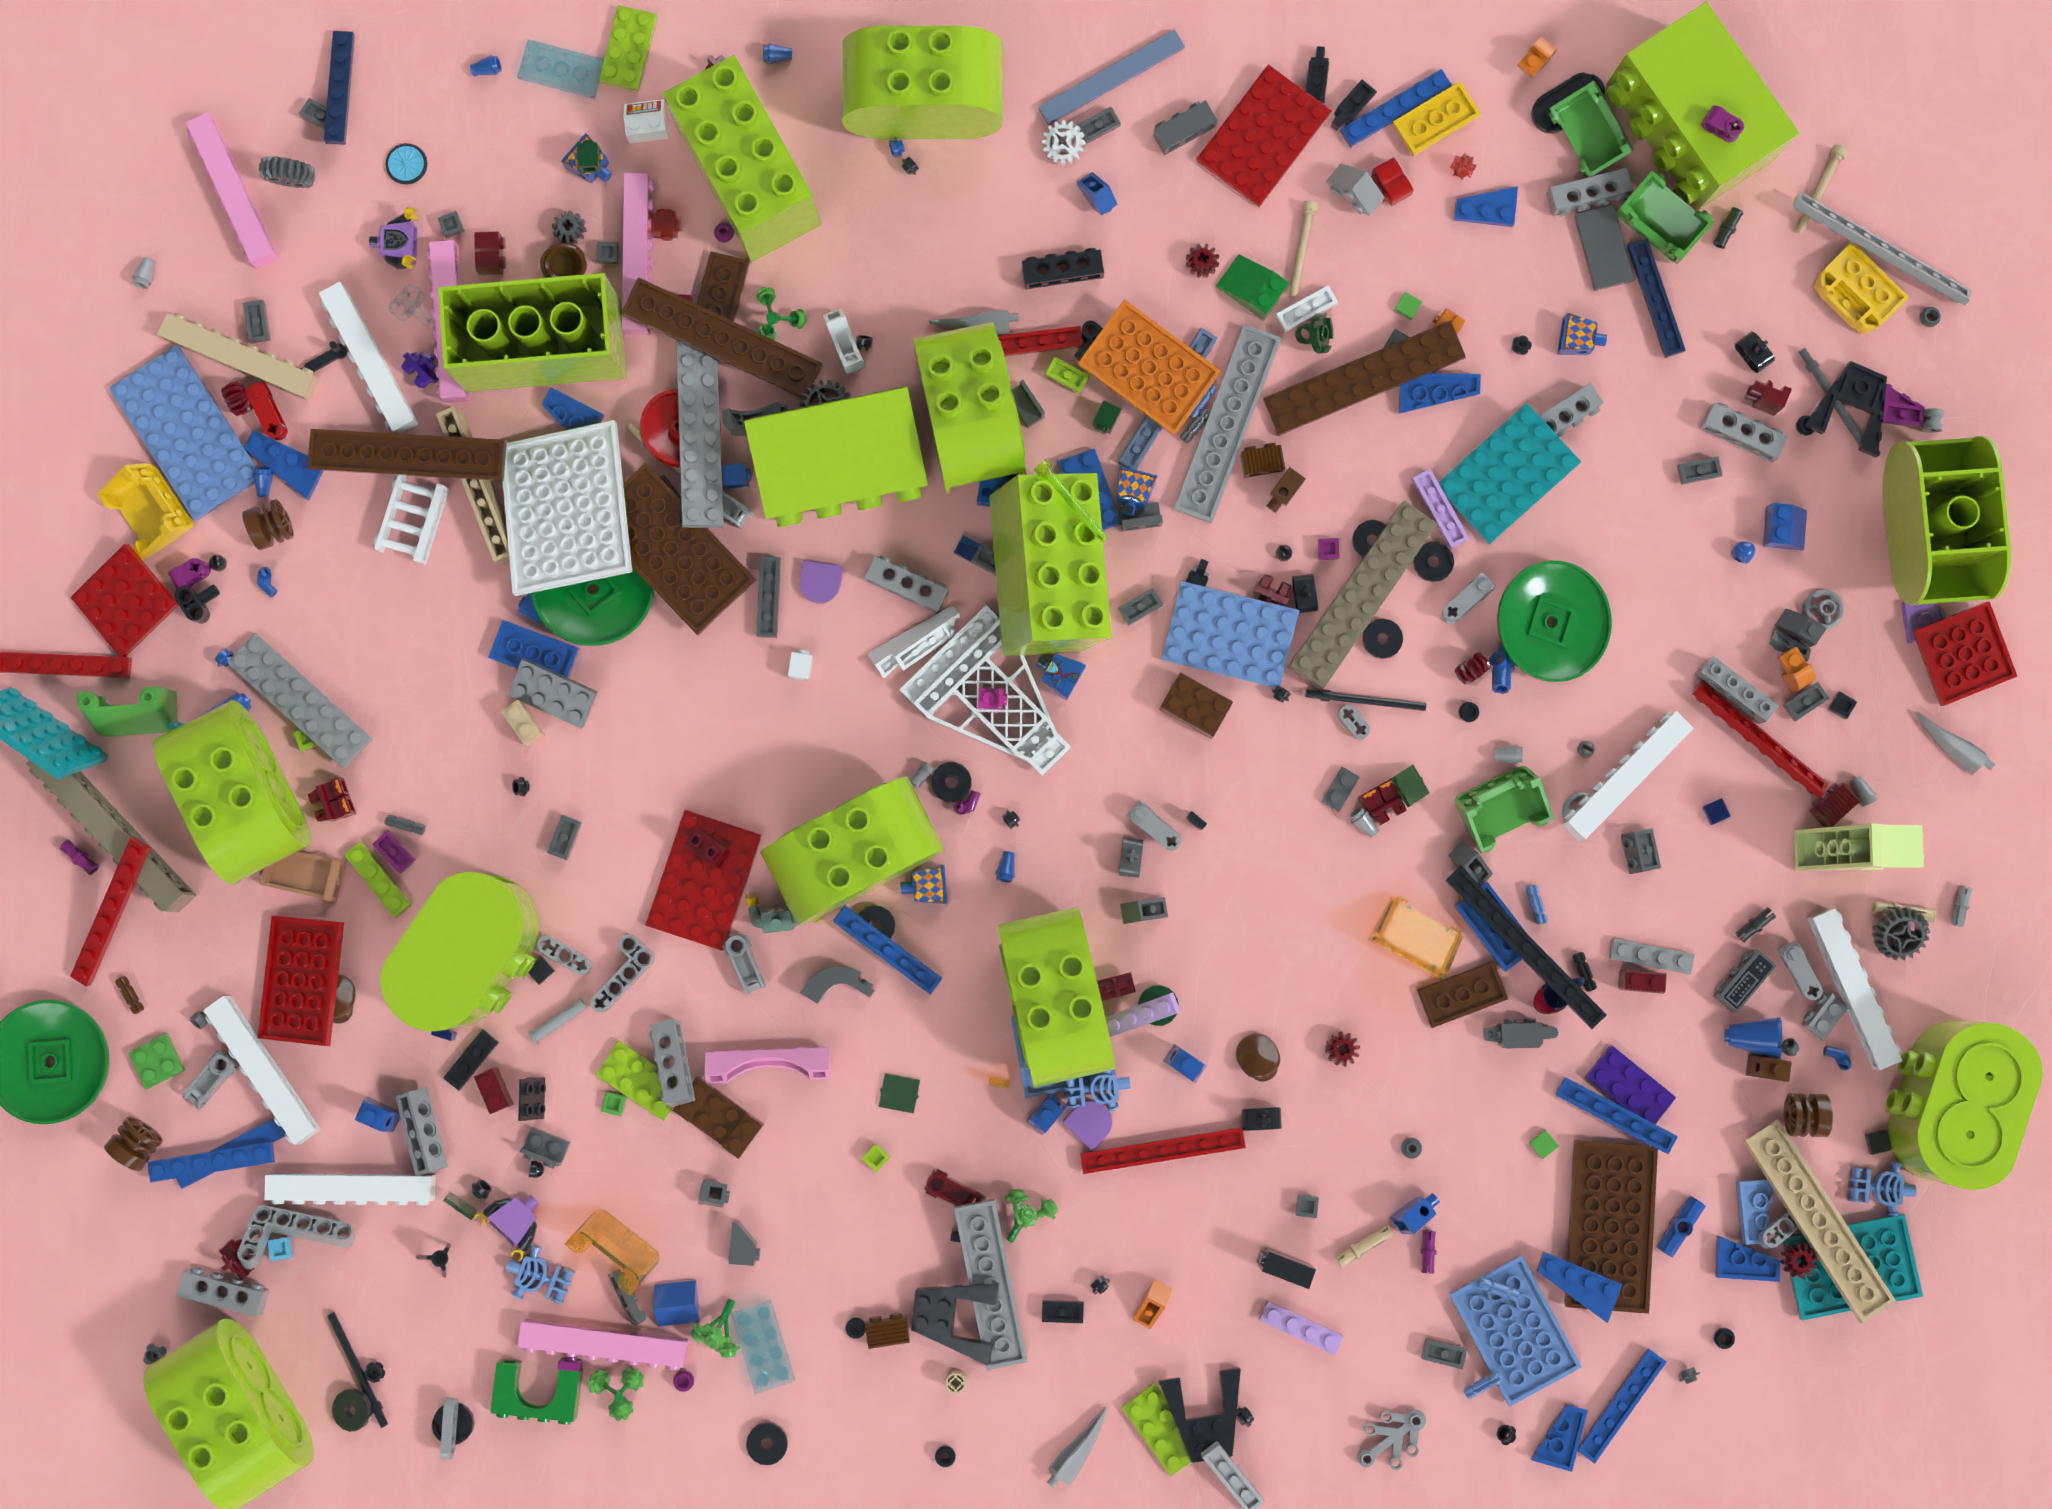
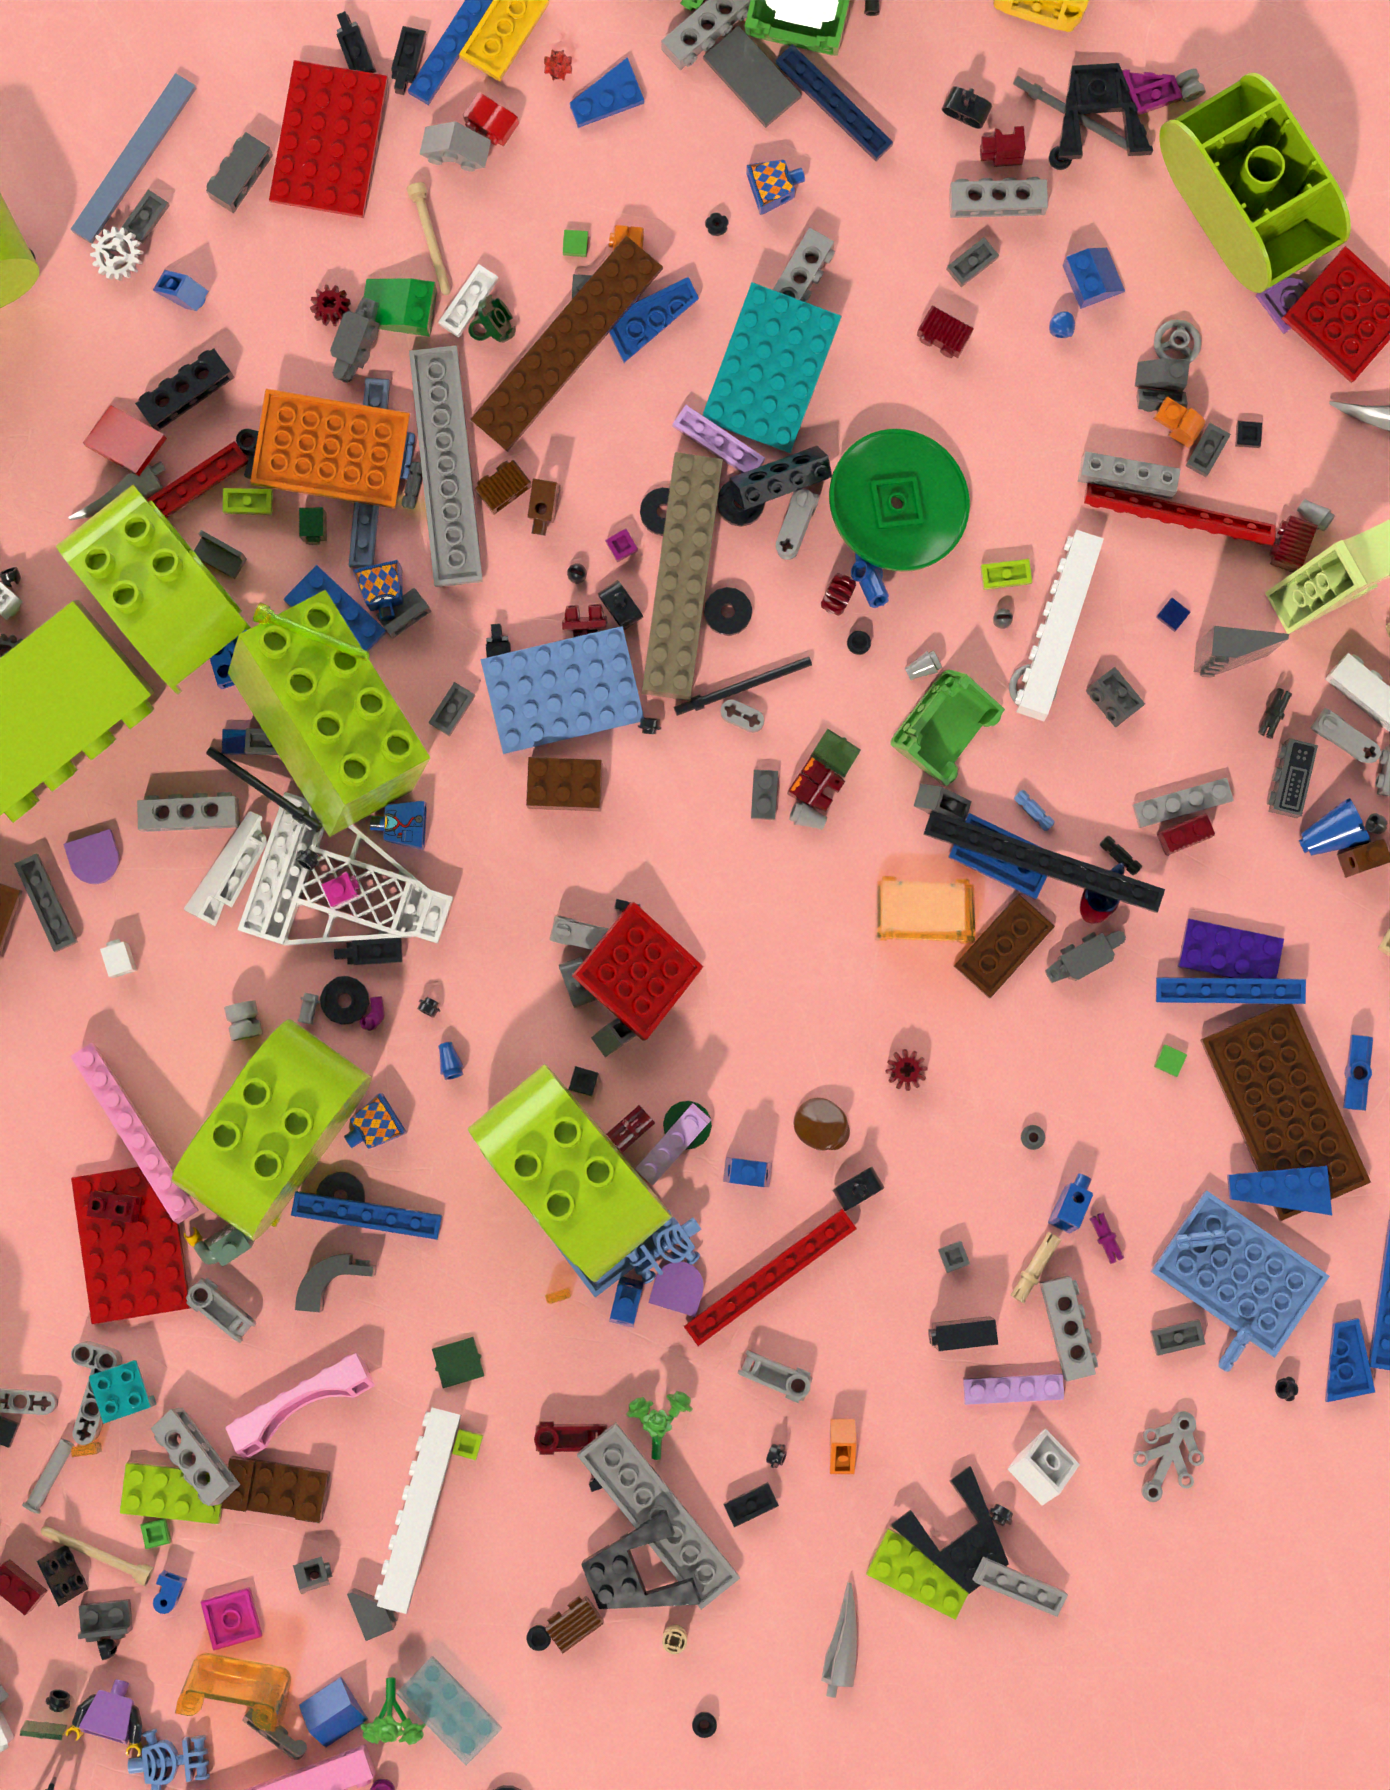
camera: 25 degrees left, 0 degrees up
(588, 1127) = (140, 1573): none -> tan piece
(596, 1016) = (84, 1450): none -> clear yellow tile
(602, 1153) = (170, 1592): none -> blue leg
(637, 1195) = (231, 1618): none -> dark pink tile
(642, 986) = (120, 1391): none -> teal bracket
(748, 801) = (133, 1132): none -> bright pink brick
(816, 1188) = (419, 1510): none -> white brick
(869, 758) = (243, 1020): none -> light grey wheel
(978, 664) = (307, 859): none -> black plate
(989, 627) = (298, 813): none -> black bar
(989, 756) = (371, 951): none -> black hinge
(999, 284) = (124, 440): none -> tile
(1098, 933) = (583, 1081): none -> black tile
(1129, 1226) = (775, 1375): none -> light grey piece
(1181, 873) = (638, 971): none -> red plate
(1207, 295) = (354, 339): none -> dark grey hinge
(1294, 1398) = (1043, 1467): none -> white slope
(1367, 1336) = (1071, 1367): none -> light grey brick
(1474, 559) = (780, 477): none -> black brick
(1605, 717) = (1006, 574): none -> lime plate
(1651, 512) = (944, 332): none -> dark red brick
(1750, 859) = (1232, 647): none -> dark grey slope

